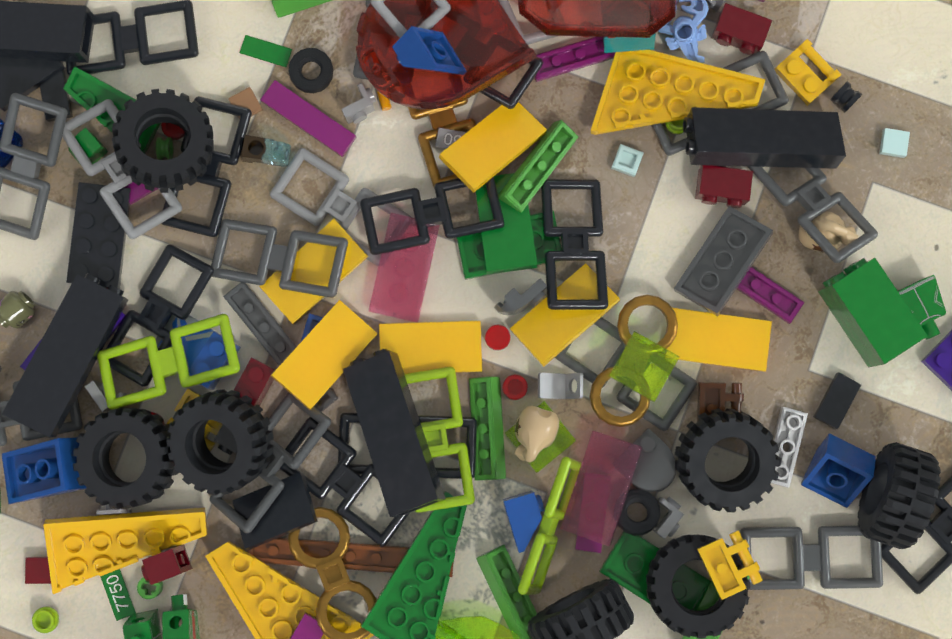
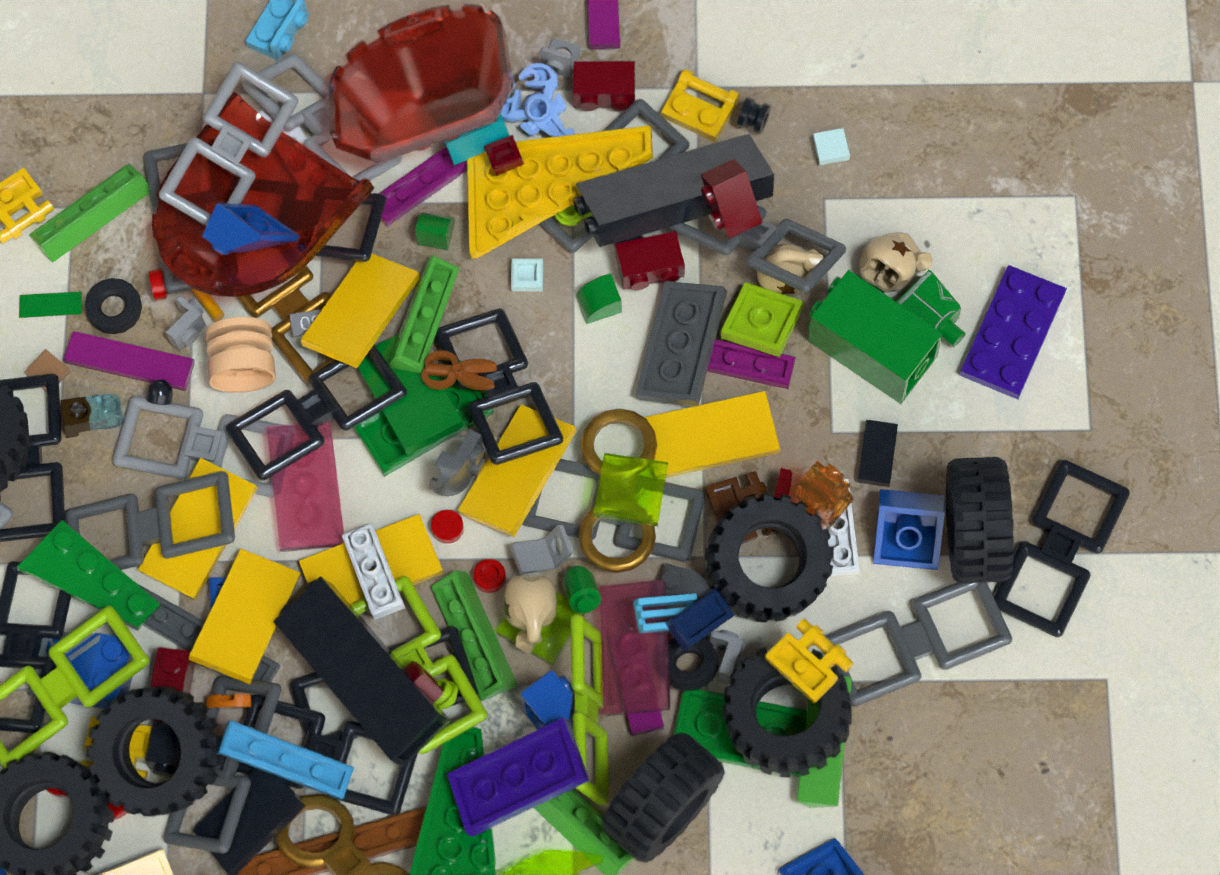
camera: 15 degrees left, 15 degrees down
(217, 279) = (88, 576): none -> green wing
(291, 415) = (234, 701): none -> orange tile
(313, 482) = (285, 760): none -> dark azure tile
(321, 154) = (159, 393): none -> black hinge
(348, 66) = (157, 284): none -> red tile
(391, 143) = (240, 354): none -> light nougat wheel
(430, 370) = (378, 584): none -> white tile
(436, 460) = (424, 680): none -> dark red tile
(447, 471) = (449, 693): none -> lime plate
(479, 566) = (518, 777): none -> dark purple plate
(552, 226) = (463, 371): none -> dark orange piece
(570, 99) = (434, 230): none -> green brick
(578, 427) = (581, 589): none -> green brick
(644, 60) = (504, 155): none -> dark red tile
(653, 478) = (641, 615): none -> medium azure tile
(658, 489) = (699, 619): none -> dark blue tile
(674, 201) = (599, 299): none -> green brick
(756, 403) = (784, 482): none -> dark red tile
(788, 427) = (824, 492): none -> clear orange brick
(791, 264) = (762, 319): none -> lime plate
(806, 165) = (730, 198): none -> dark red brick
(907, 255) = (892, 261): none -> tan piece

